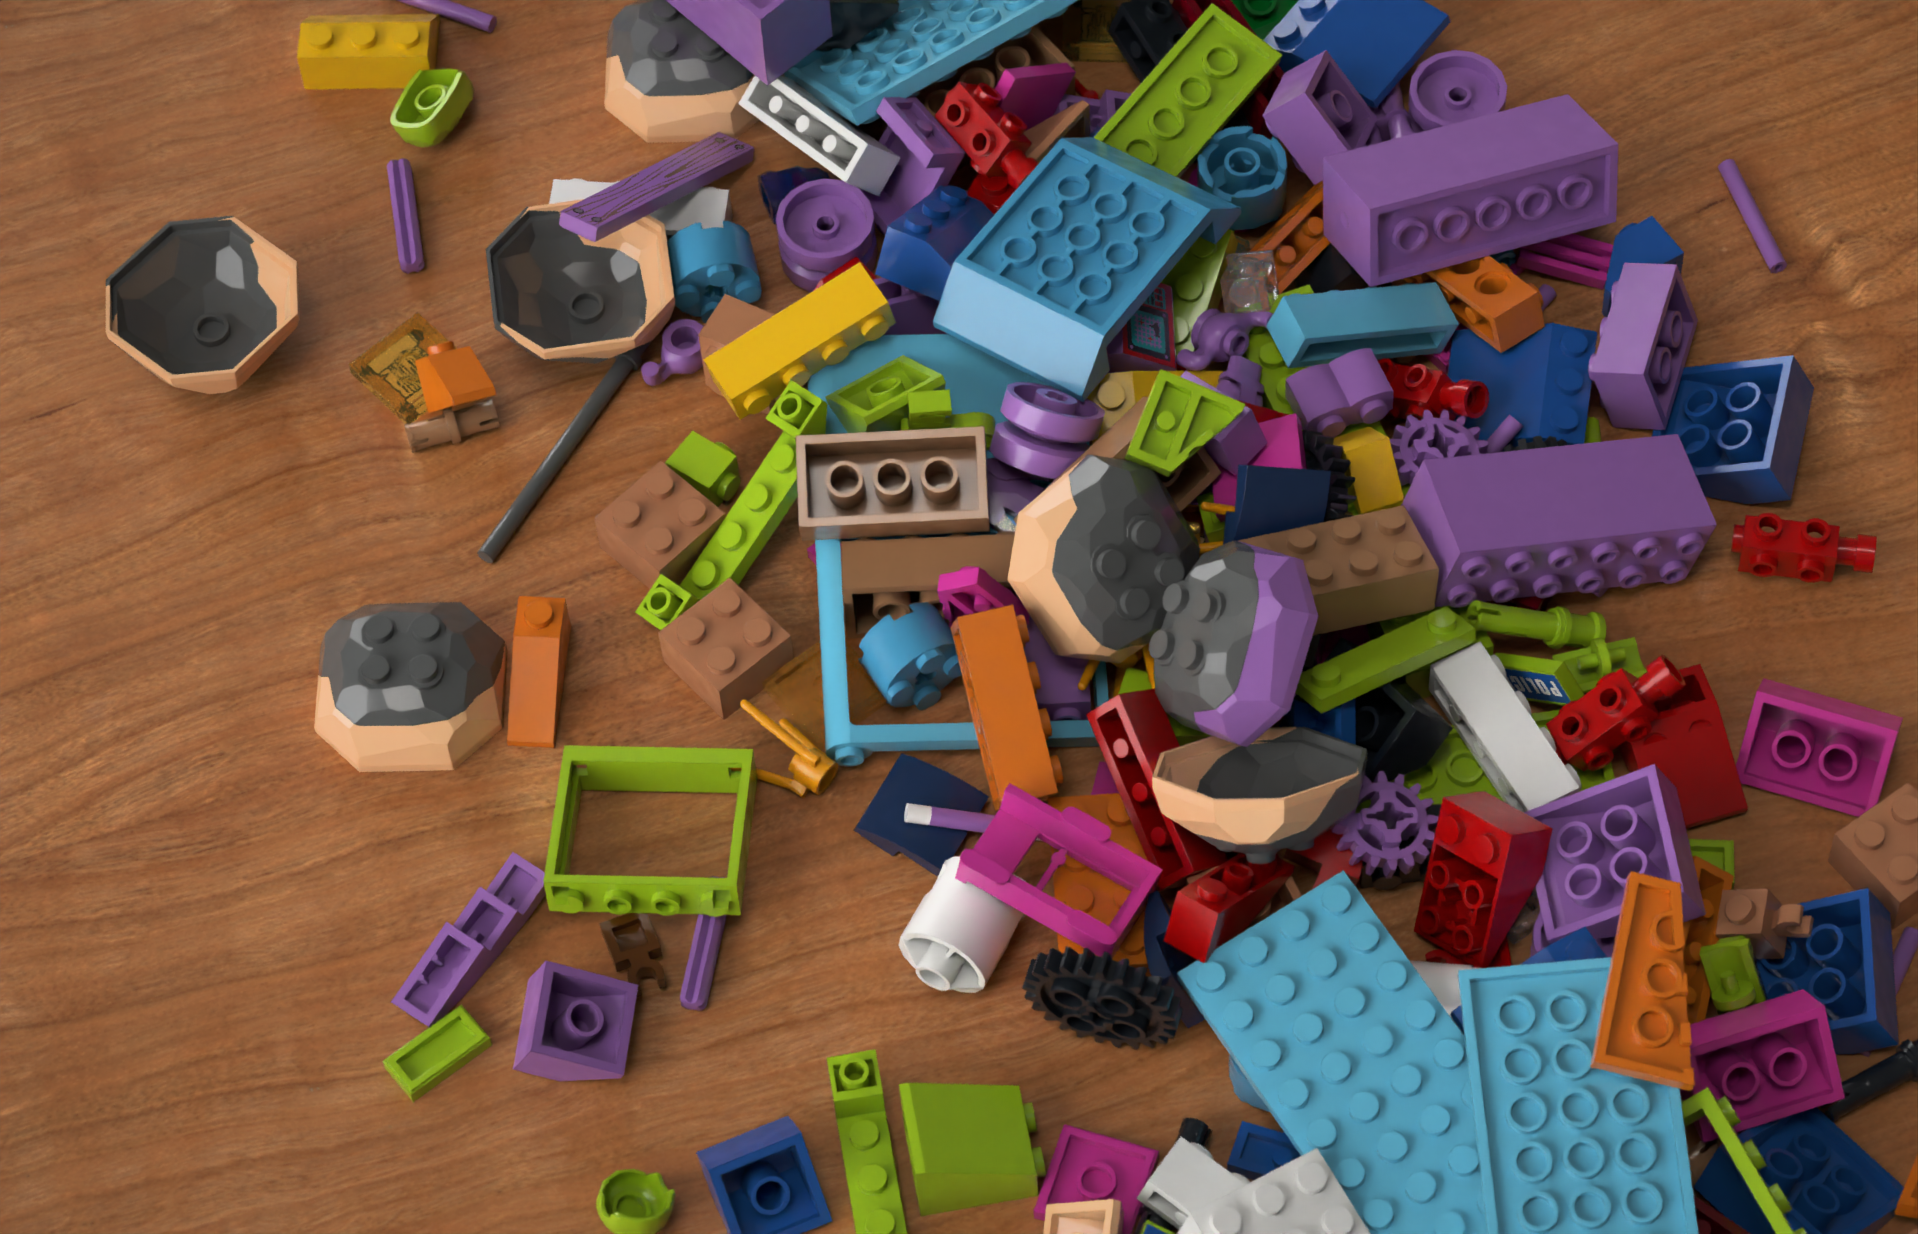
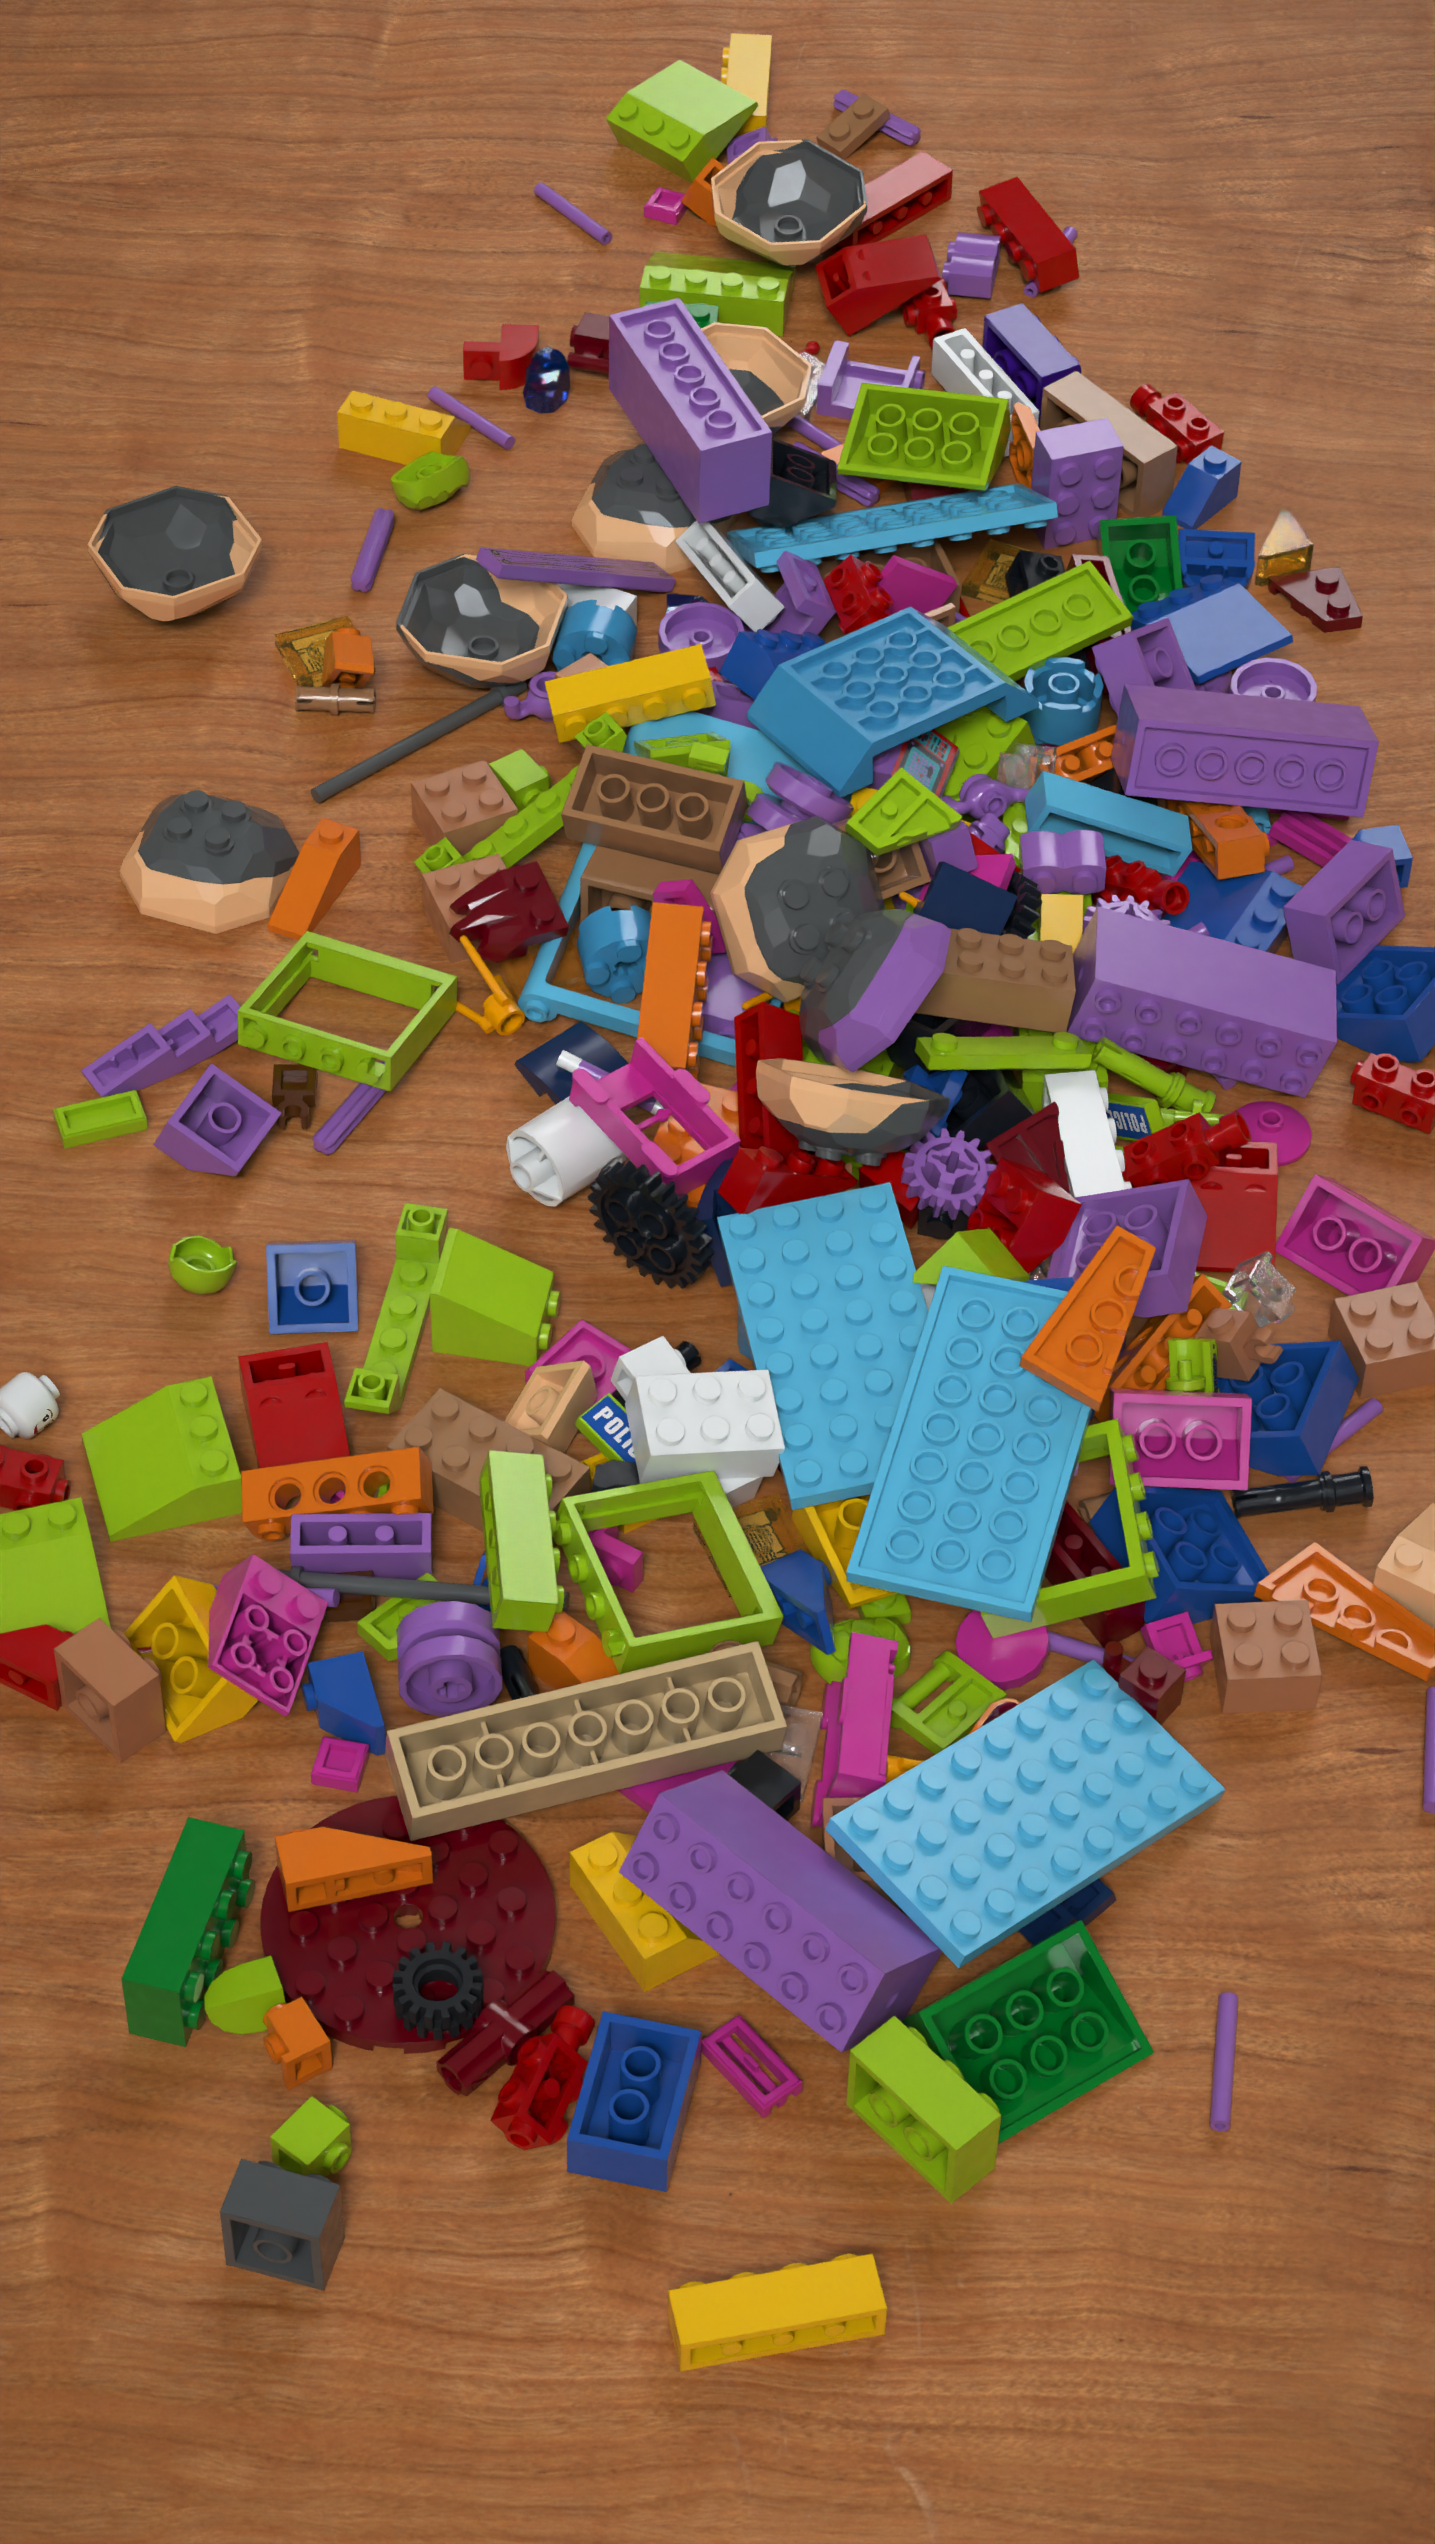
camera: 15 degrees right, 10 degrees down
(781, 655) = (509, 913): none -> dark red plate
(1458, 763) = (1034, 1144): none -> dark red wing
(1472, 938) = (974, 1252): none -> lime slope
(1686, 646) = (1280, 1125): none -> dark pink dish
(1760, 844) = (1260, 1289): none -> clear brick

